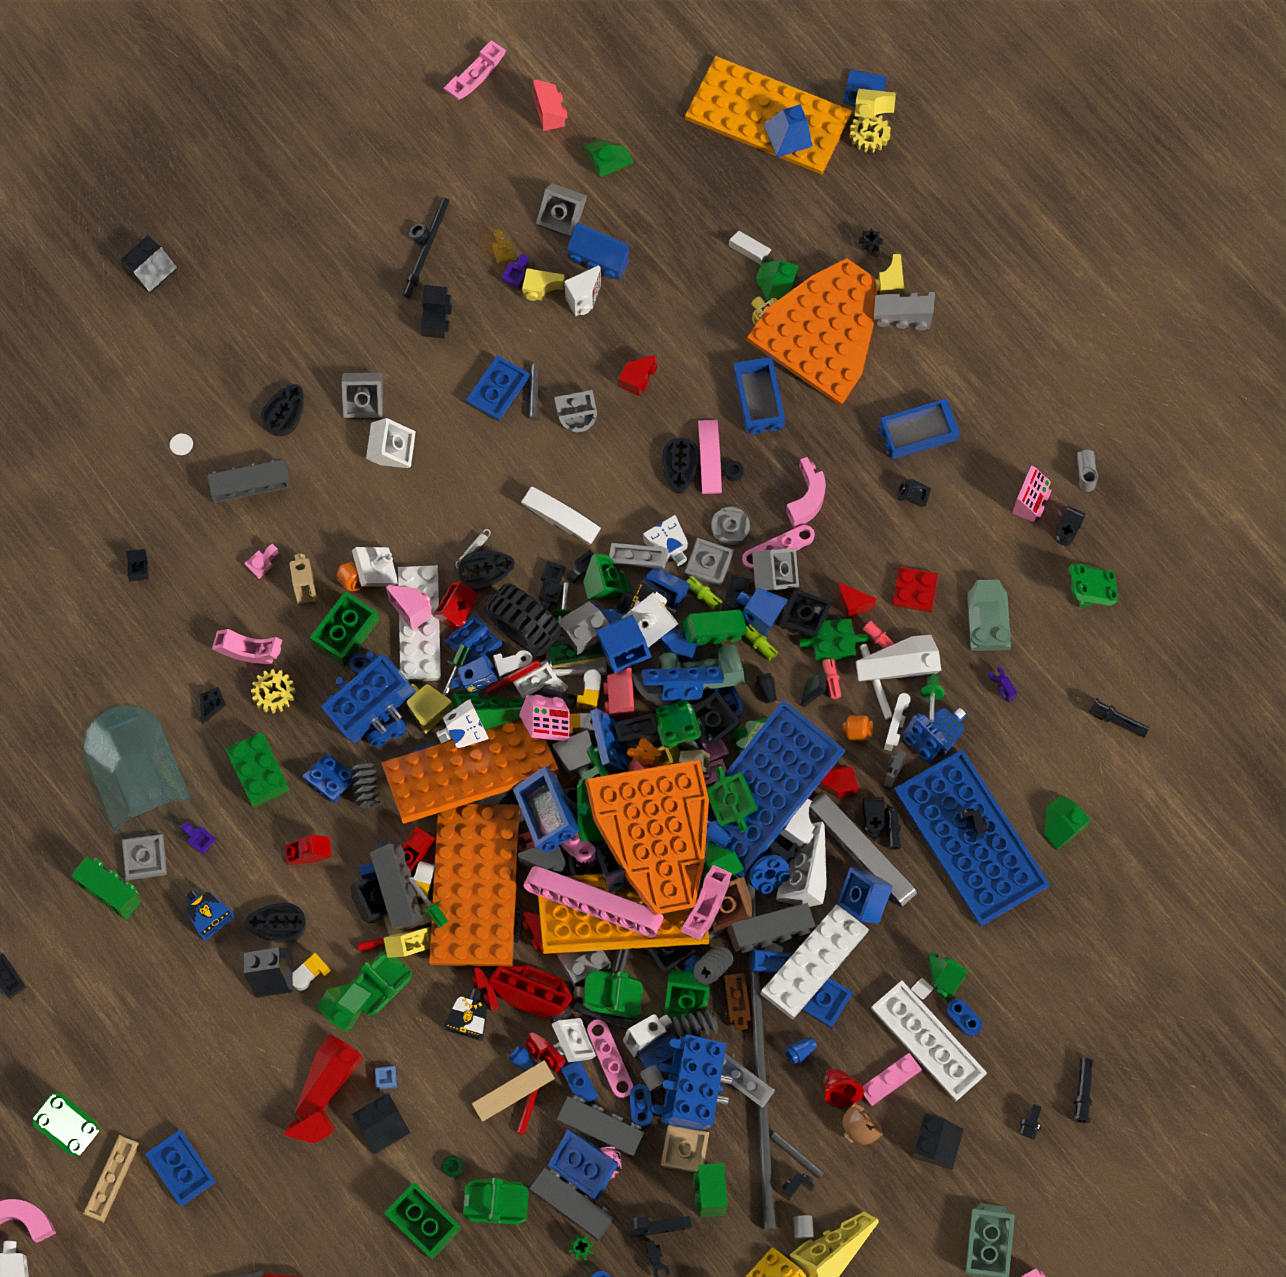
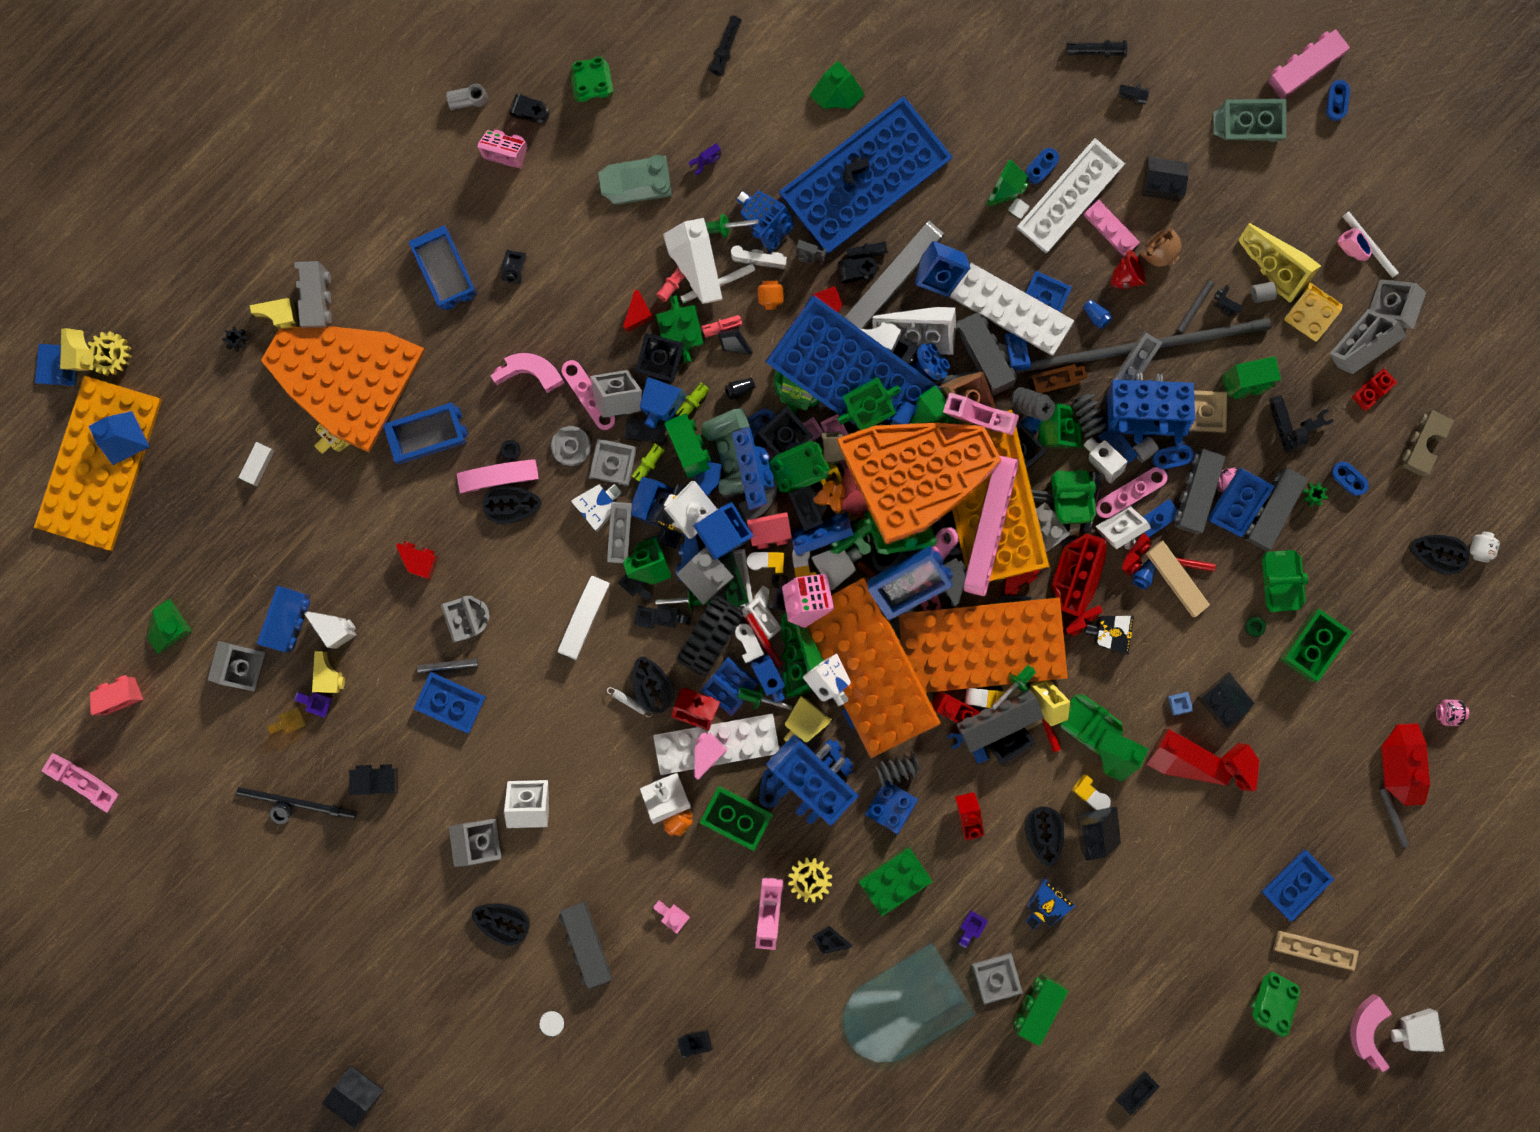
camera: 95 degrees left, 15 degrees up
(301, 576) = (693, 867): tan torso -> none
(613, 874) = (963, 510): black torso -> none
(776, 278) = (292, 431): green slope -> none
(915, 589) = (615, 255): red plate -> none

